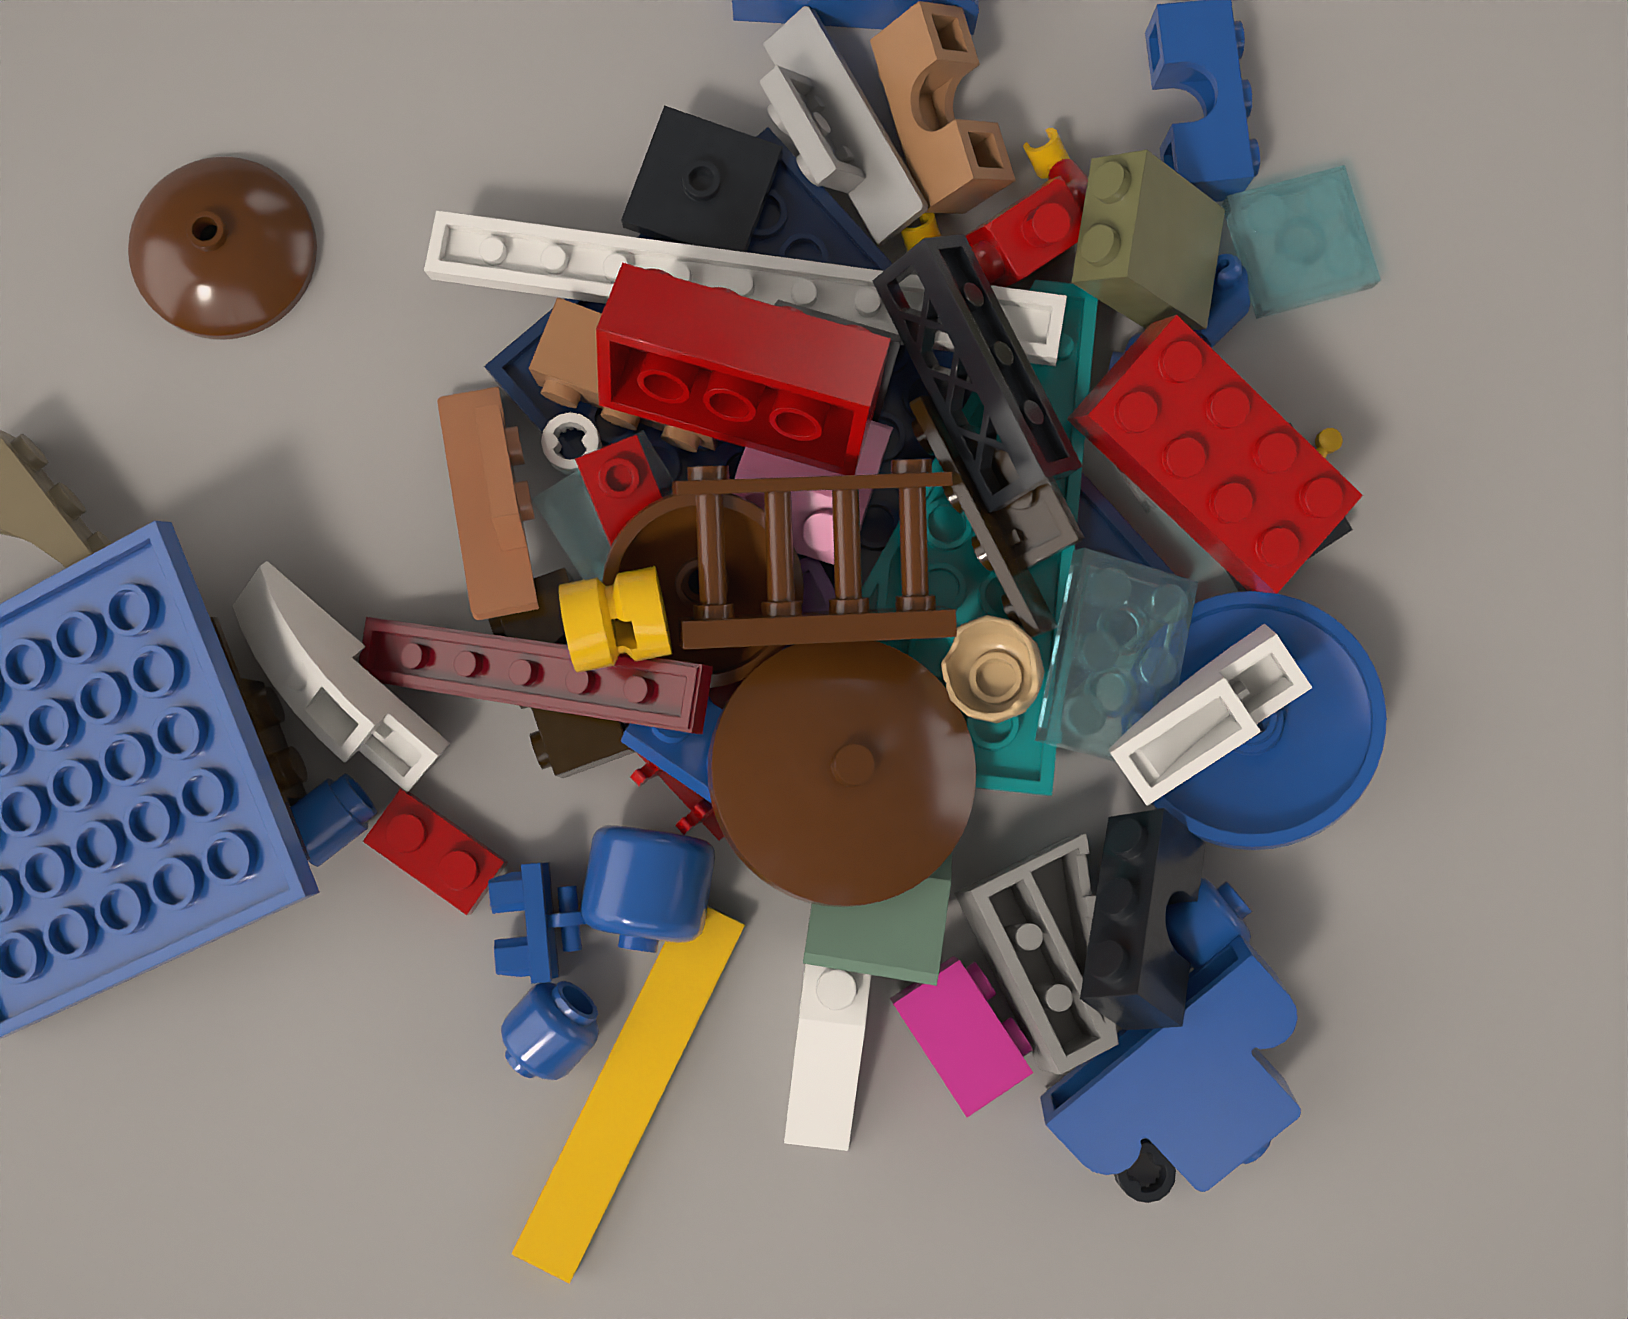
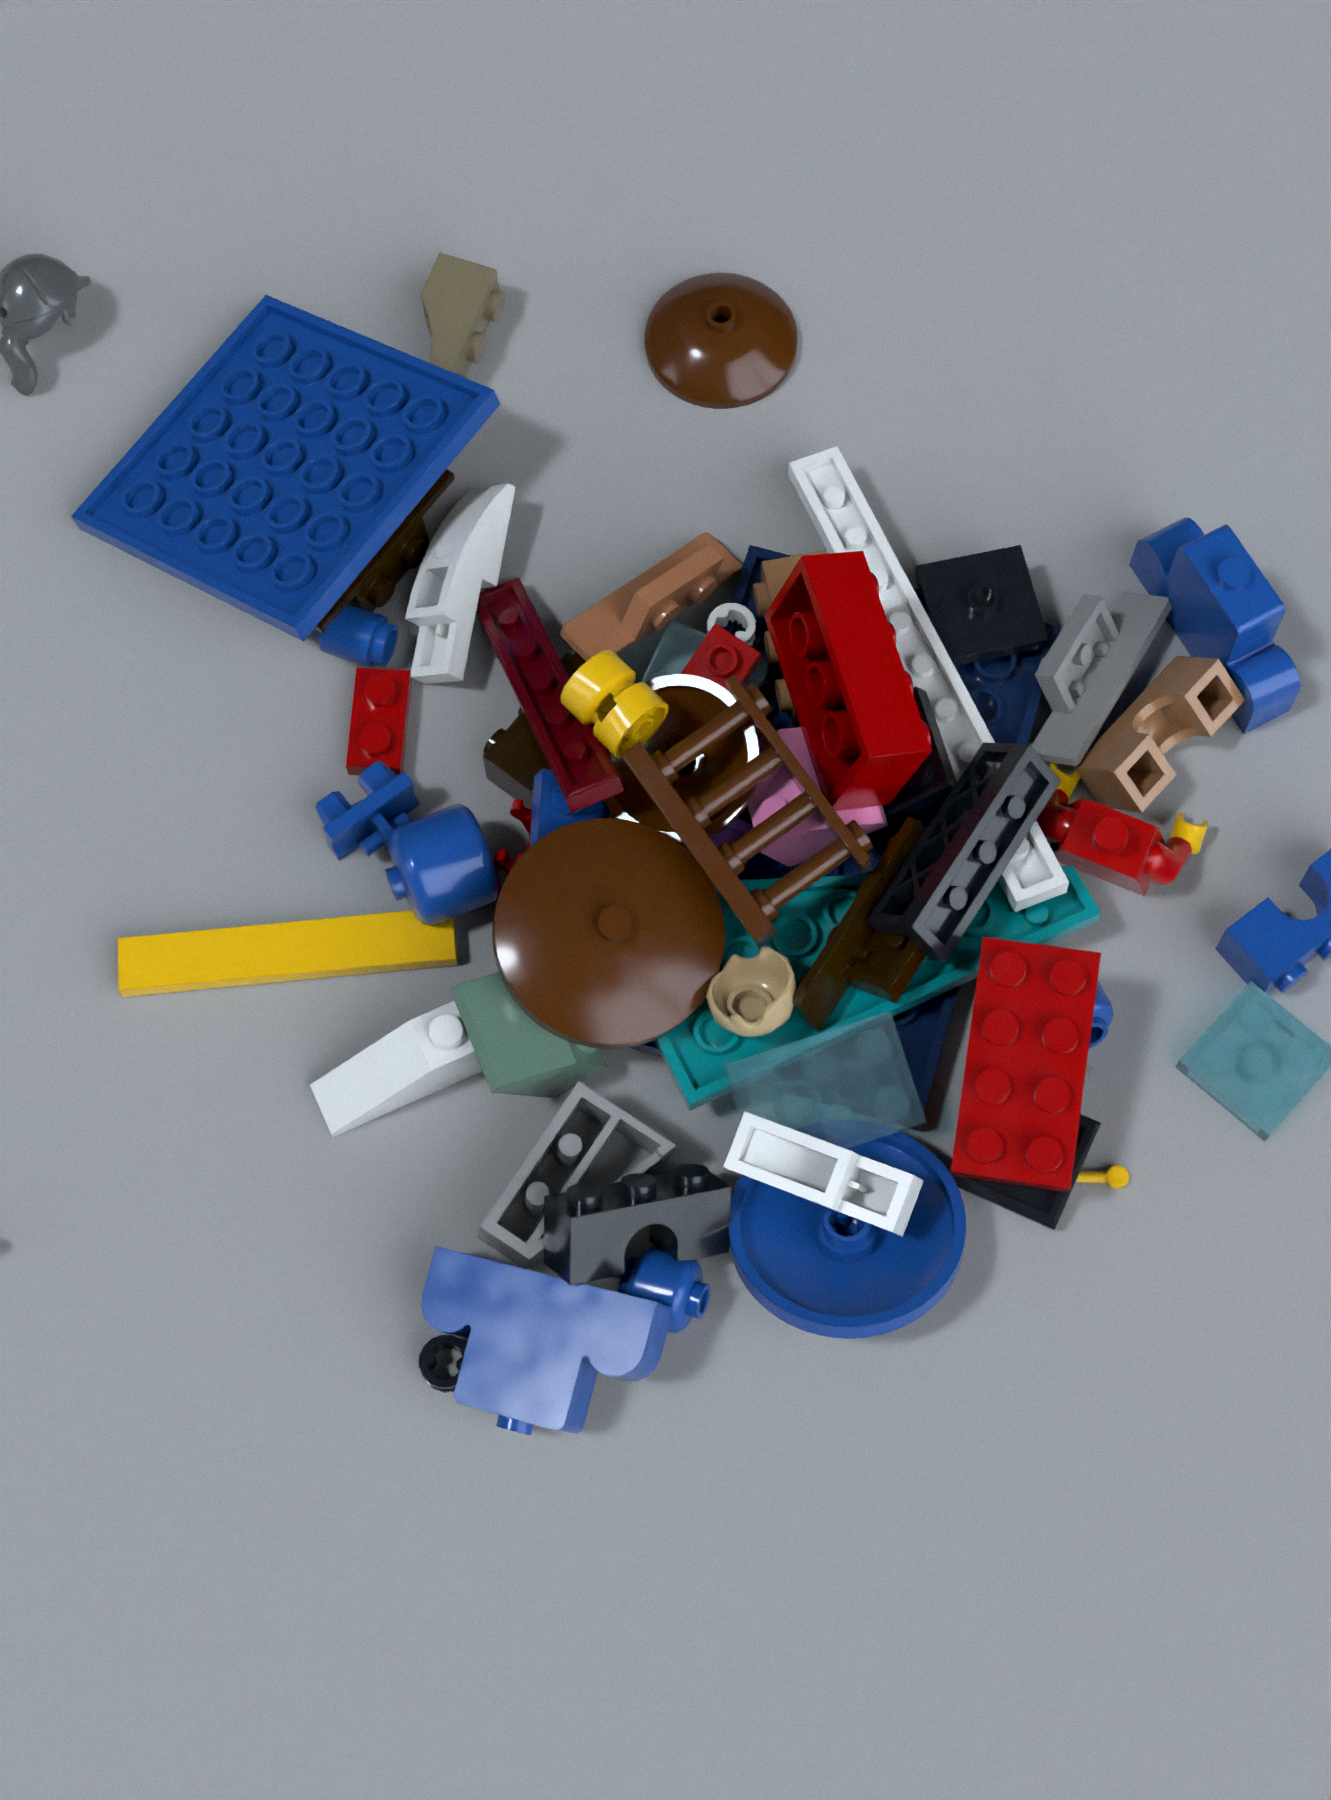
camera: 65 degrees right, 15 degrees down
(550, 1030) = (296, 867): blue head -> none
(963, 1035) = (469, 1154): dark pink brick -> none
(1147, 240) = (1159, 929): olive brick -> none
(1229, 299) = (1172, 1031): blue arm -> none

